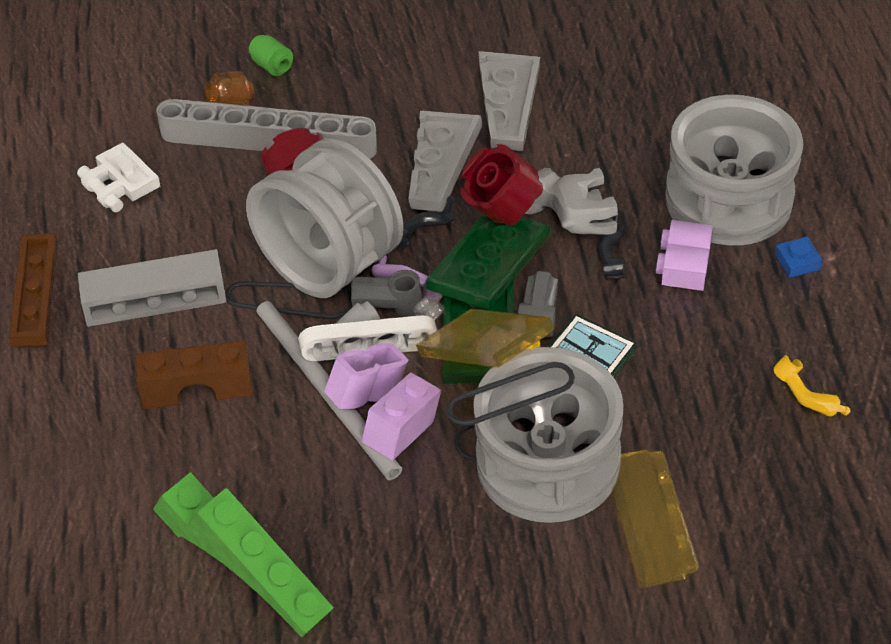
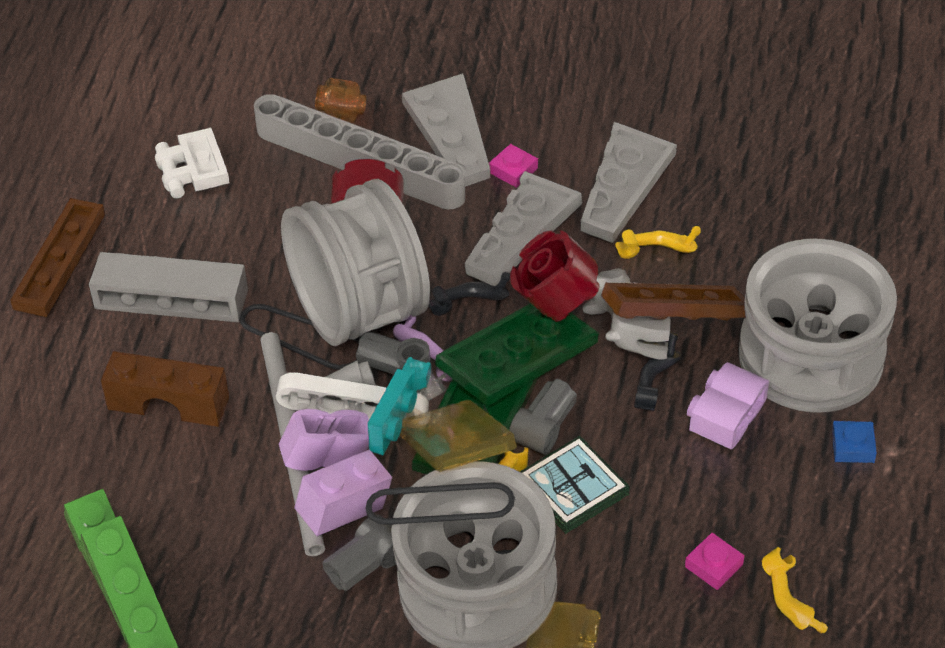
camera: 20 degrees right, 0 degrees up
(270, 54) = (400, 71): bright green brick -> none
(332, 87) = (450, 125): none -> light grey wing
(406, 109) = (511, 164): none -> dark pink plate
(419, 323) = (396, 401): none -> teal hinge
(444, 456) = (362, 555): none -> dark grey piece
(540, 148) = (674, 241): none -> yellow piece
(611, 179) = (674, 300): none -> reddish brown plate
(734, 383) = (714, 561): none -> dark pink plate

